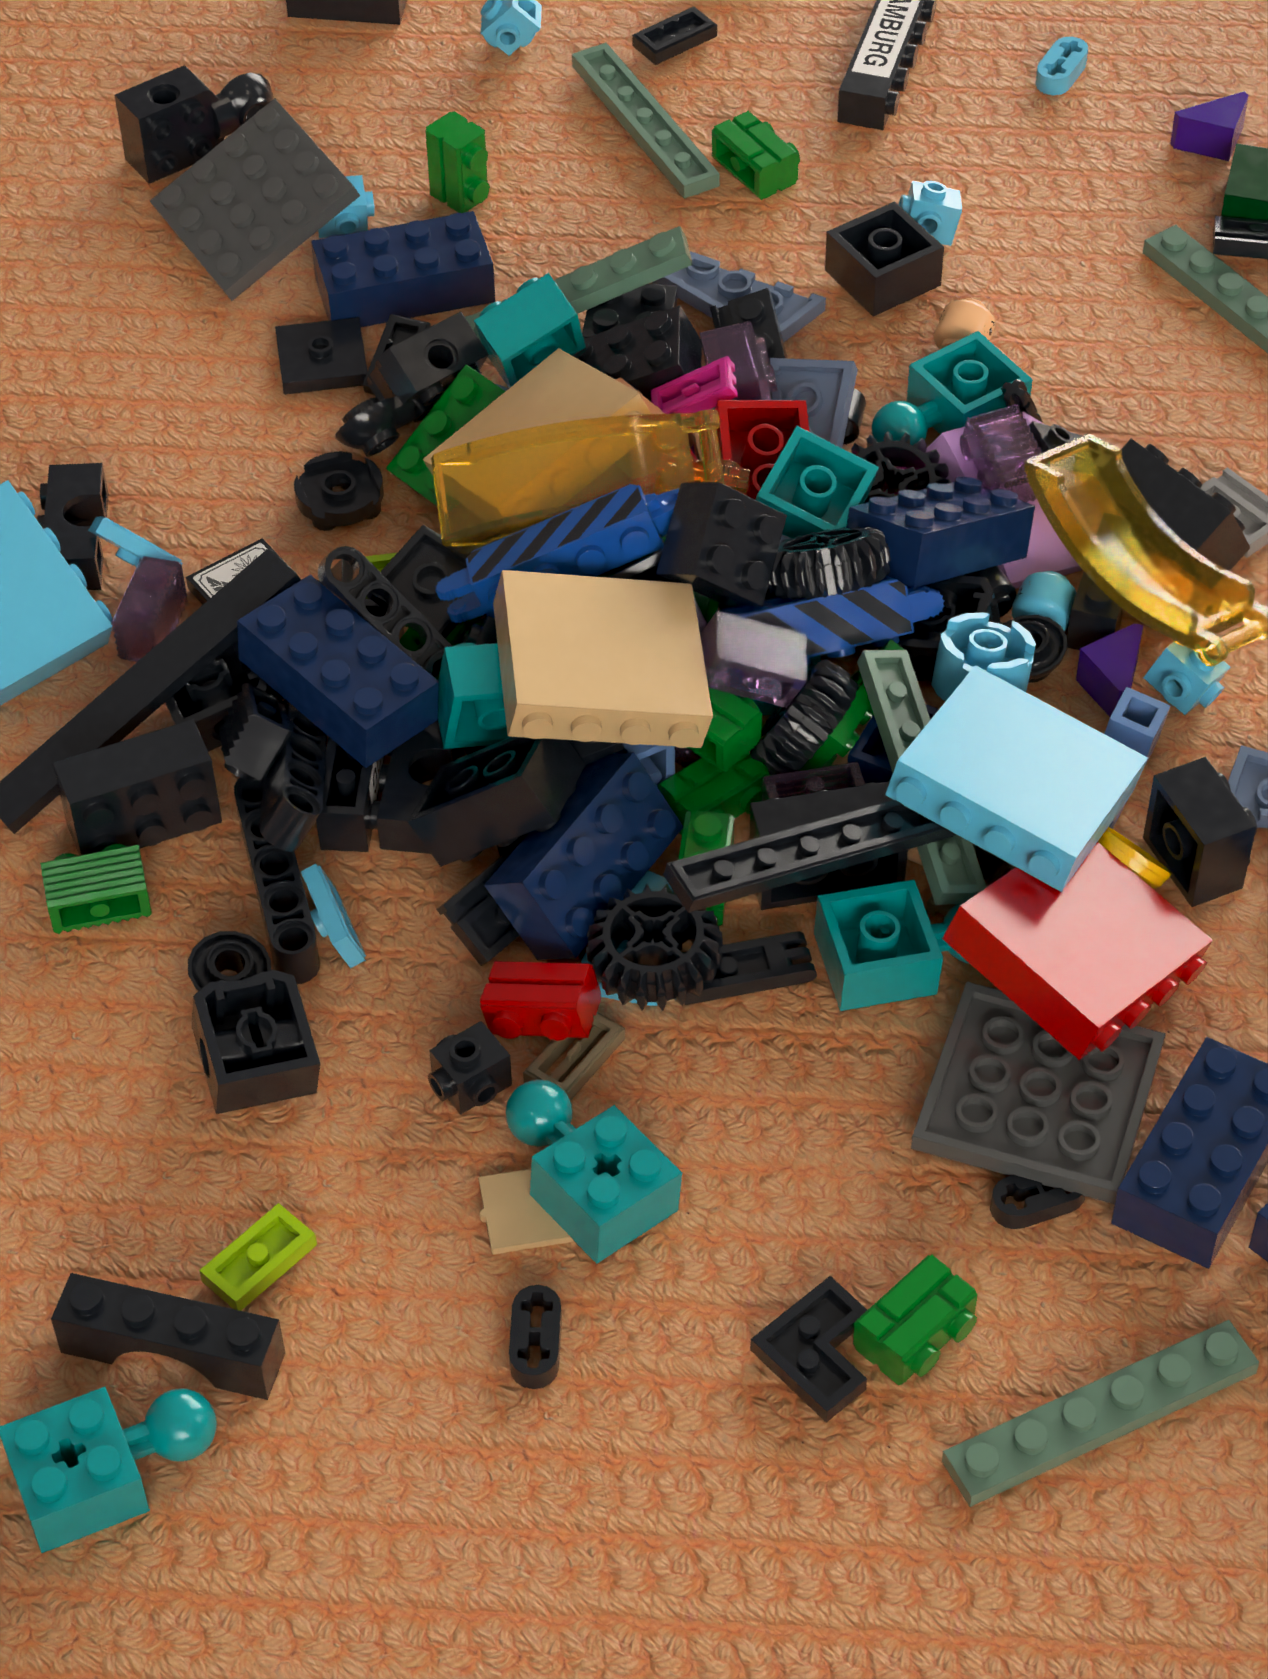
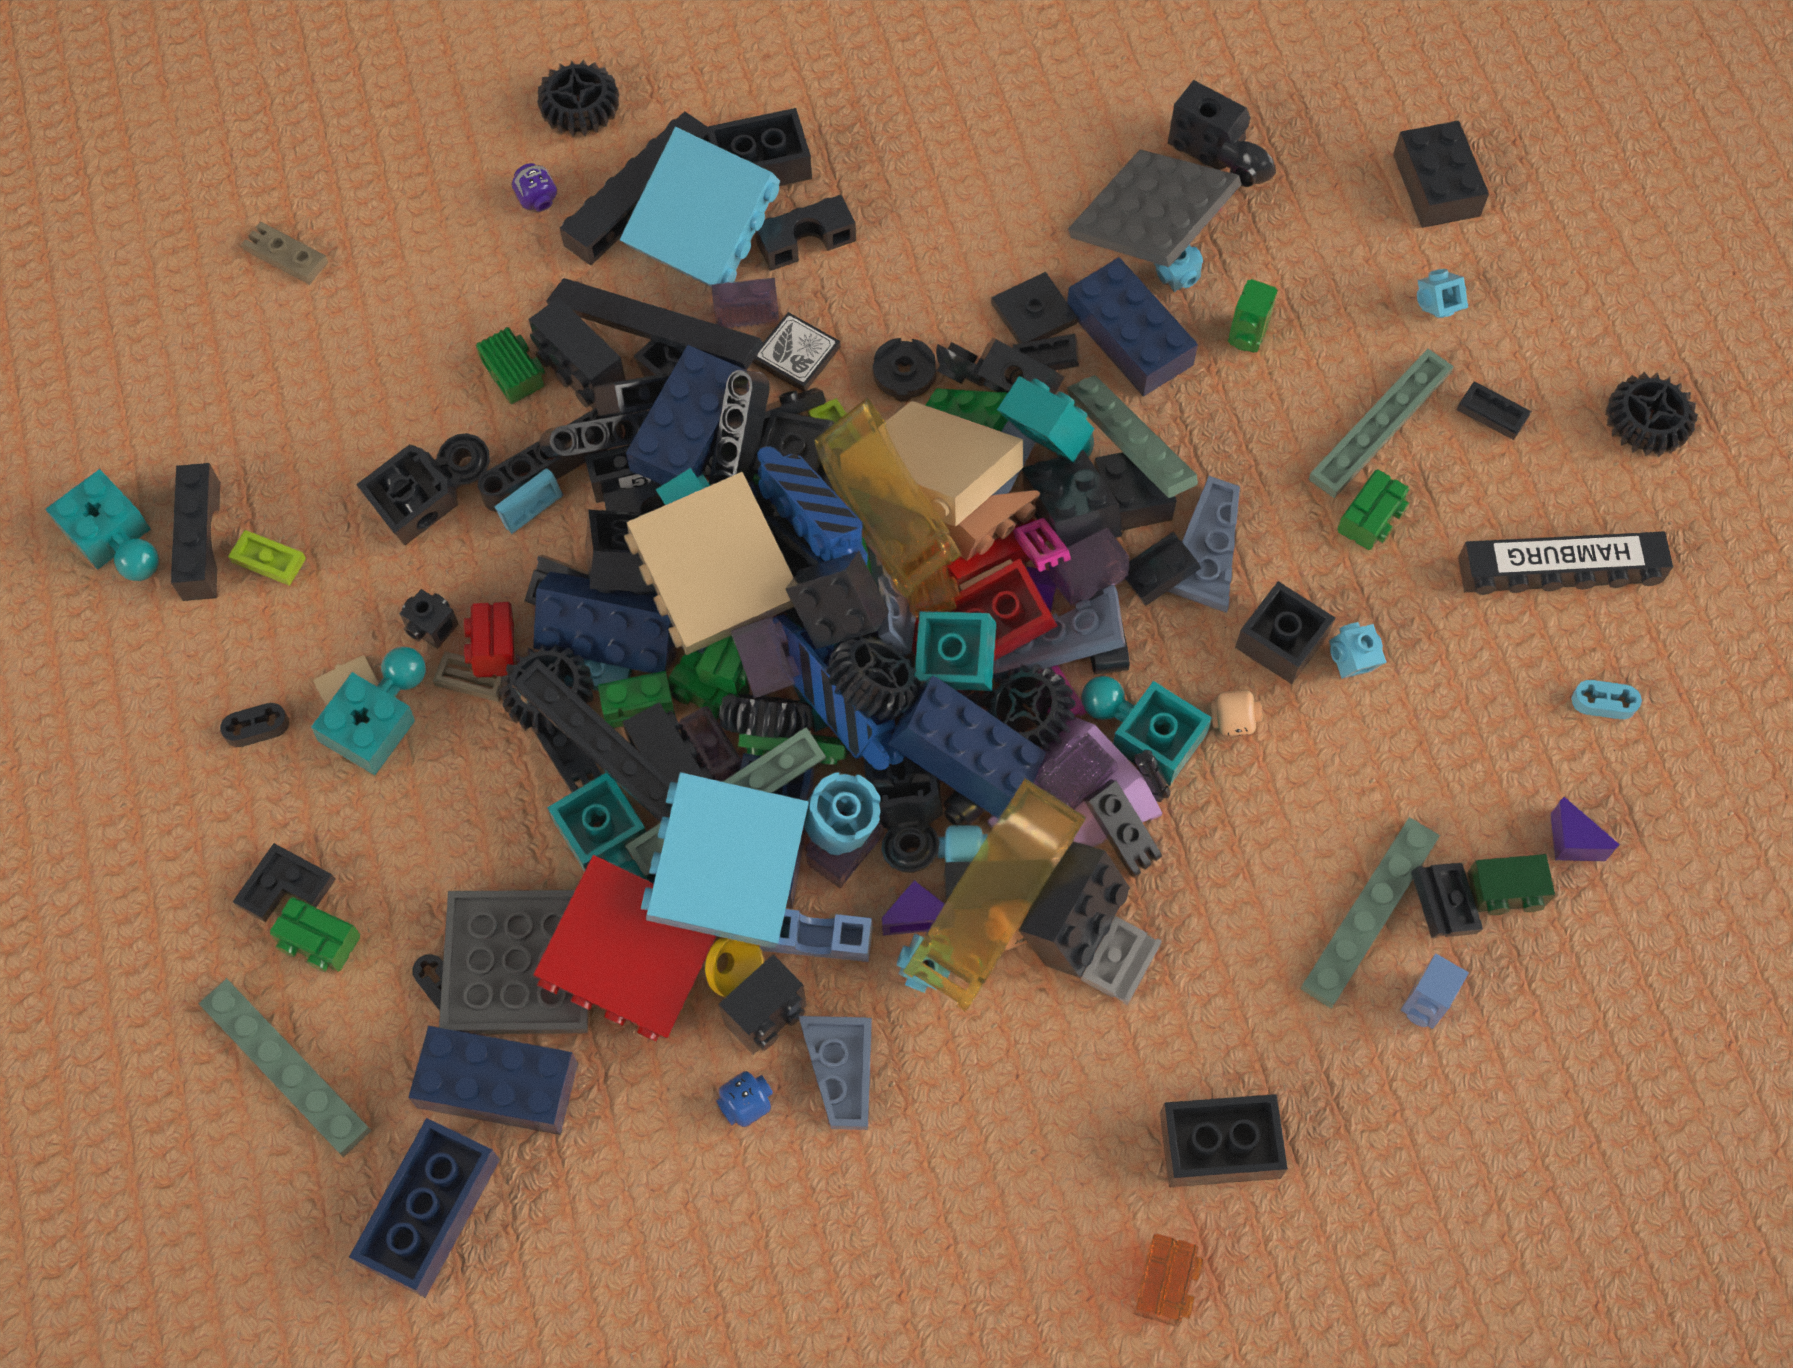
camera: 70 degrees right, 15 degrees up
(130, 544) = (787, 271): medium azure plate -> none

